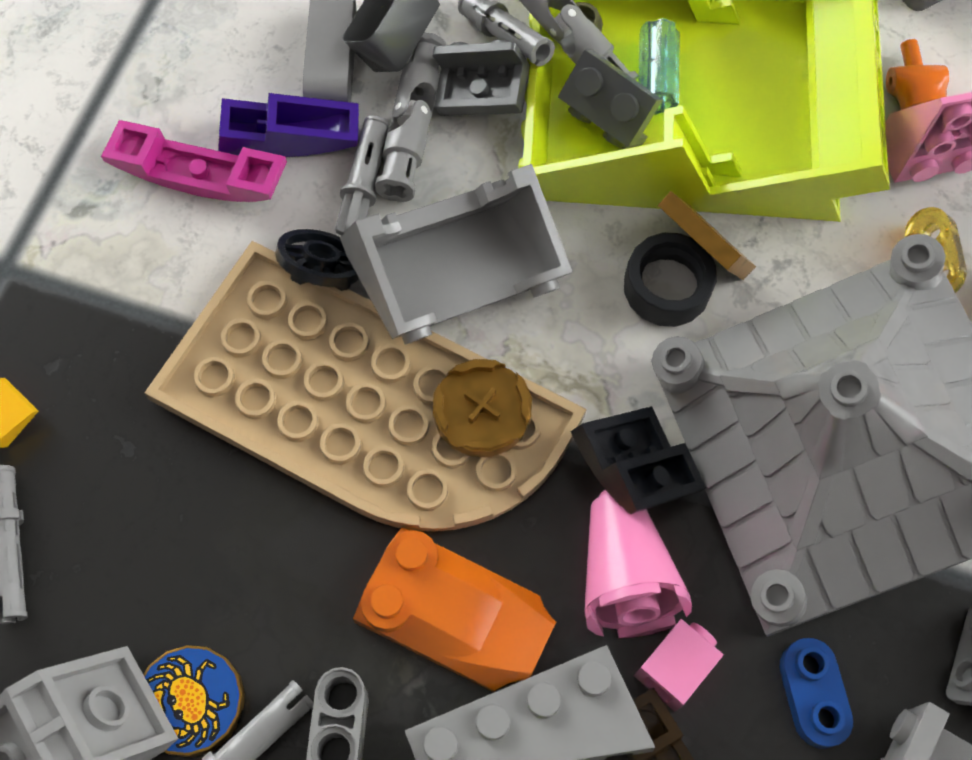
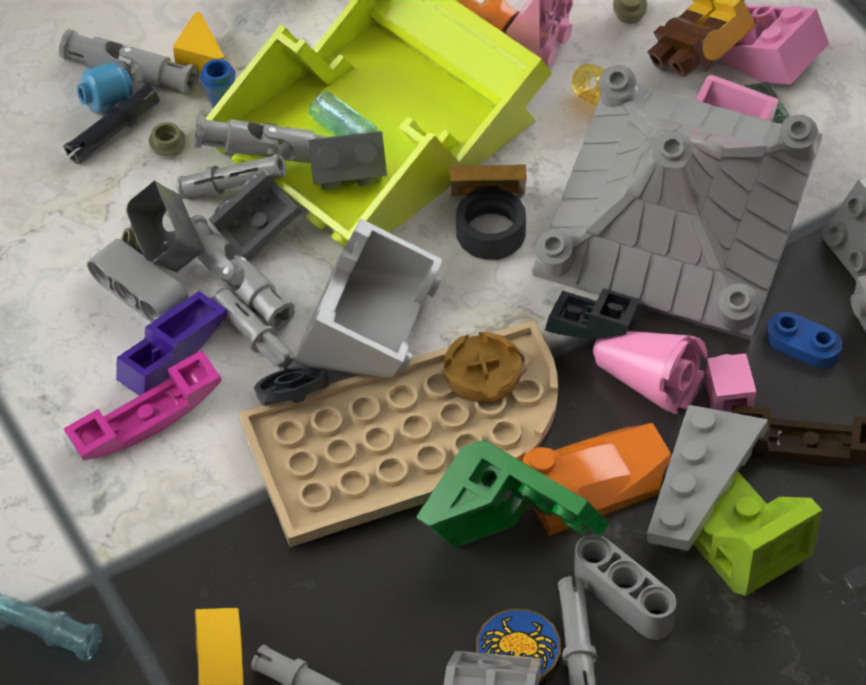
camera: 45 degrees left, 15 degrees down
(339, 556) = (471, 494): none -> green bracket

